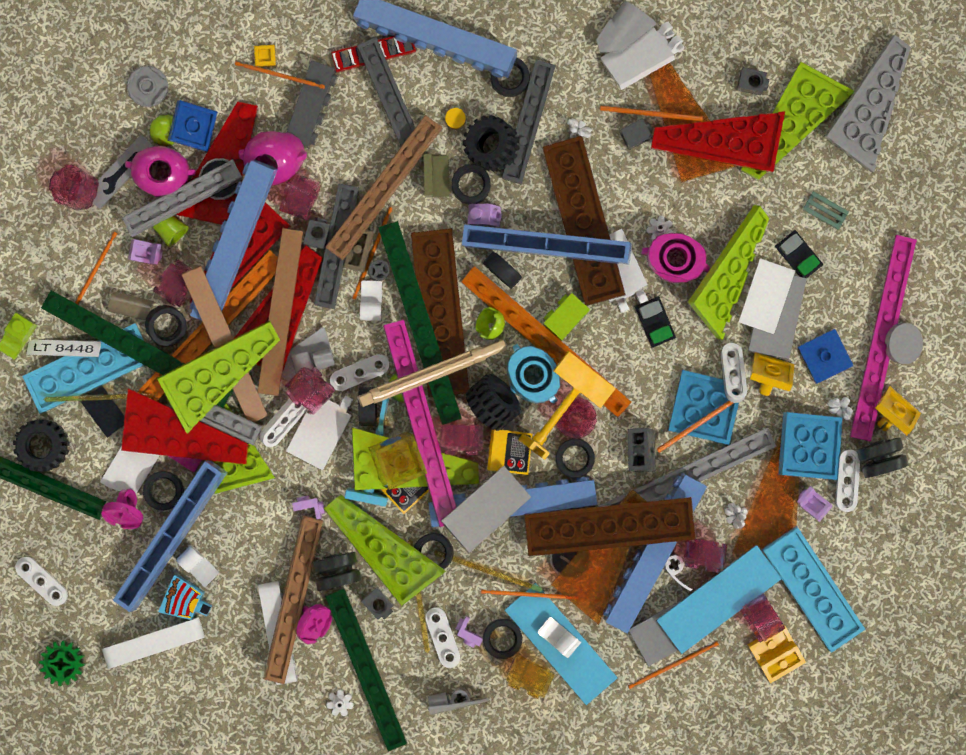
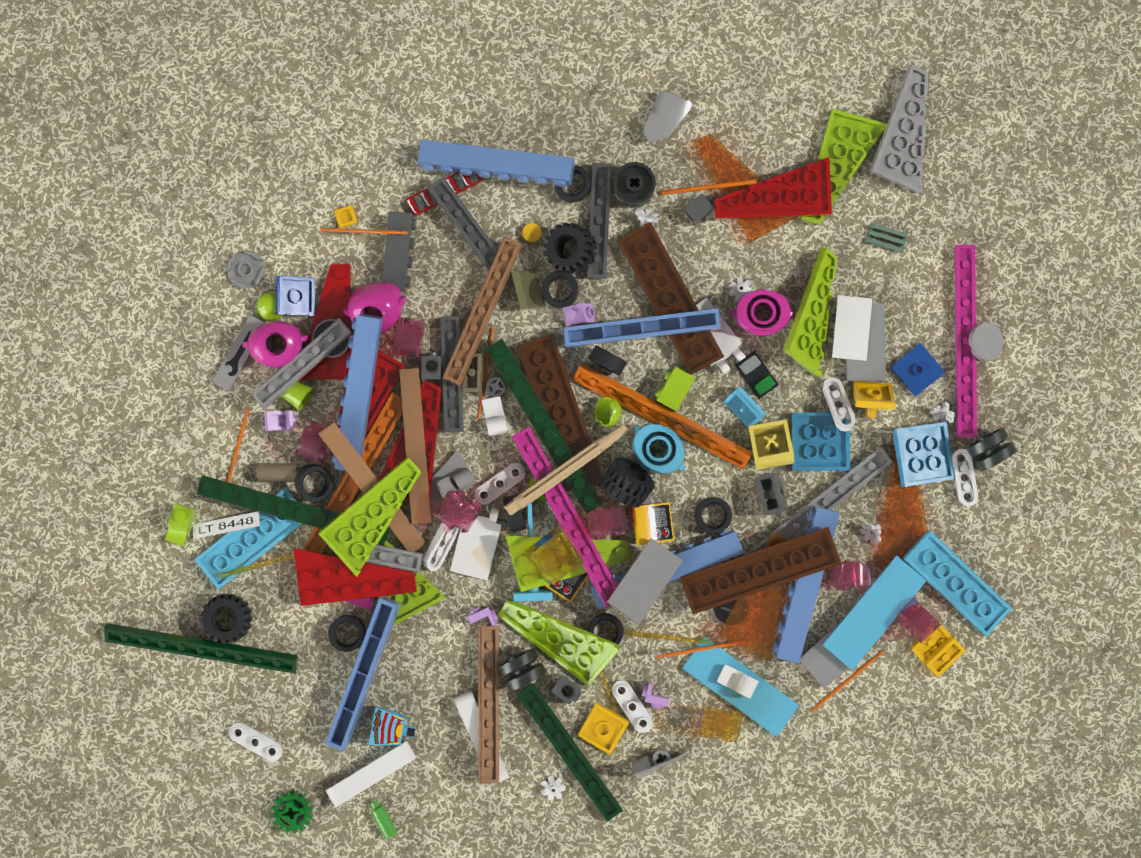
camera: 15 degrees left, 0 degrees up
(73, 187) = (200, 377): clear pink brick -> none
(105, 412) = (277, 575): black piece -> none
(123, 511) = (315, 660): dark pink tile -> none
(128, 470) = (311, 623): white sticker -> none
(154, 694) = (383, 820): none -> bright green cylinder
(196, 564) = (394, 693): white panel -> none
(313, 623) = (512, 721): dark pink tile -> none
(407, 653) = (603, 728): none -> yellow tile
(502, 654) = (701, 694): black tyre -> none
(578, 81) = (634, 173): none -> pearl dark grey wheel
(583, 381) = (705, 444): yellow piece -> none
(587, 415) = (715, 474): clear pink brick -> none
(634, 353) = (744, 407): none -> medium azure hinge
(643, 56) = (688, 137): white tile -> none
(652, 398) = (771, 444): none -> light yellow brick
(672, 572) = (825, 597): white panel -> none
(694, 426) = (815, 460): orange axle -> none
(743, 83) = (786, 142): dark grey brick -> none
(799, 255) = (871, 283): piece -> none
(814, 503) = (939, 505): lavender bracket -> none
(897, 412) = (994, 405): yellow tile -> none

